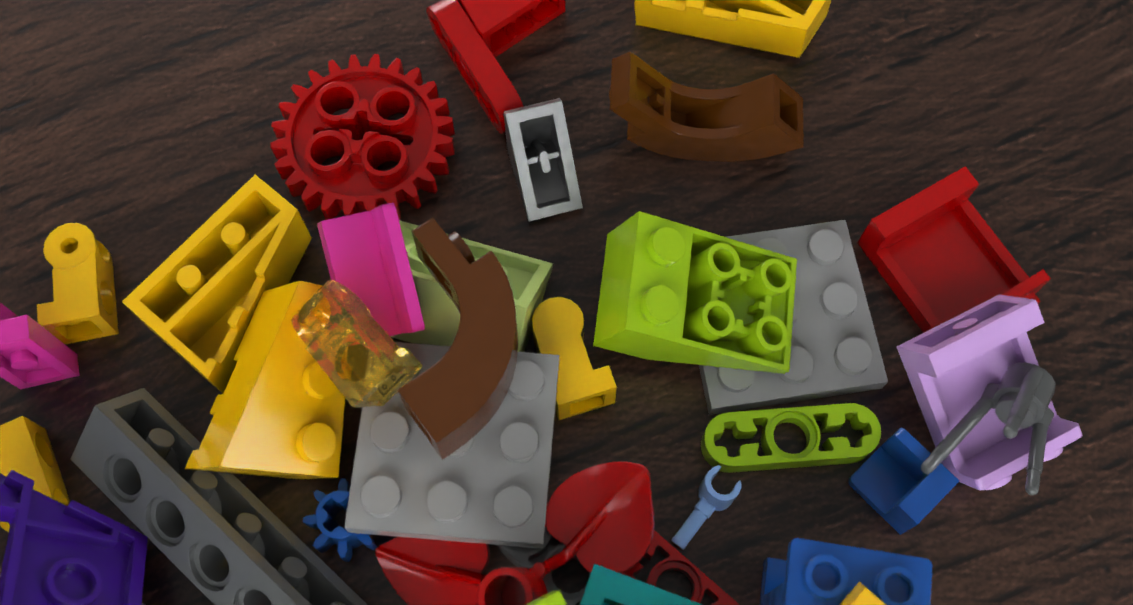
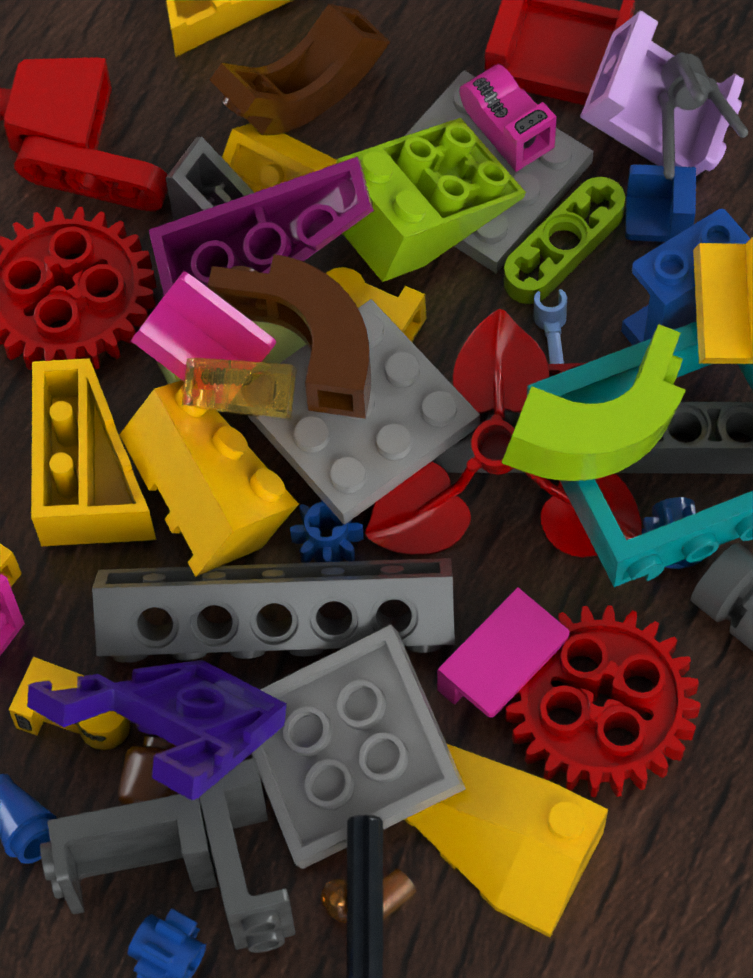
camera: 40 degrees left, 5 degrees down
(524, 220) = (280, 220): none -> magenta wedge
(617, 177) = (270, 159): none -> yellow panel
(837, 293) = (509, 116): none -> dark pink leg

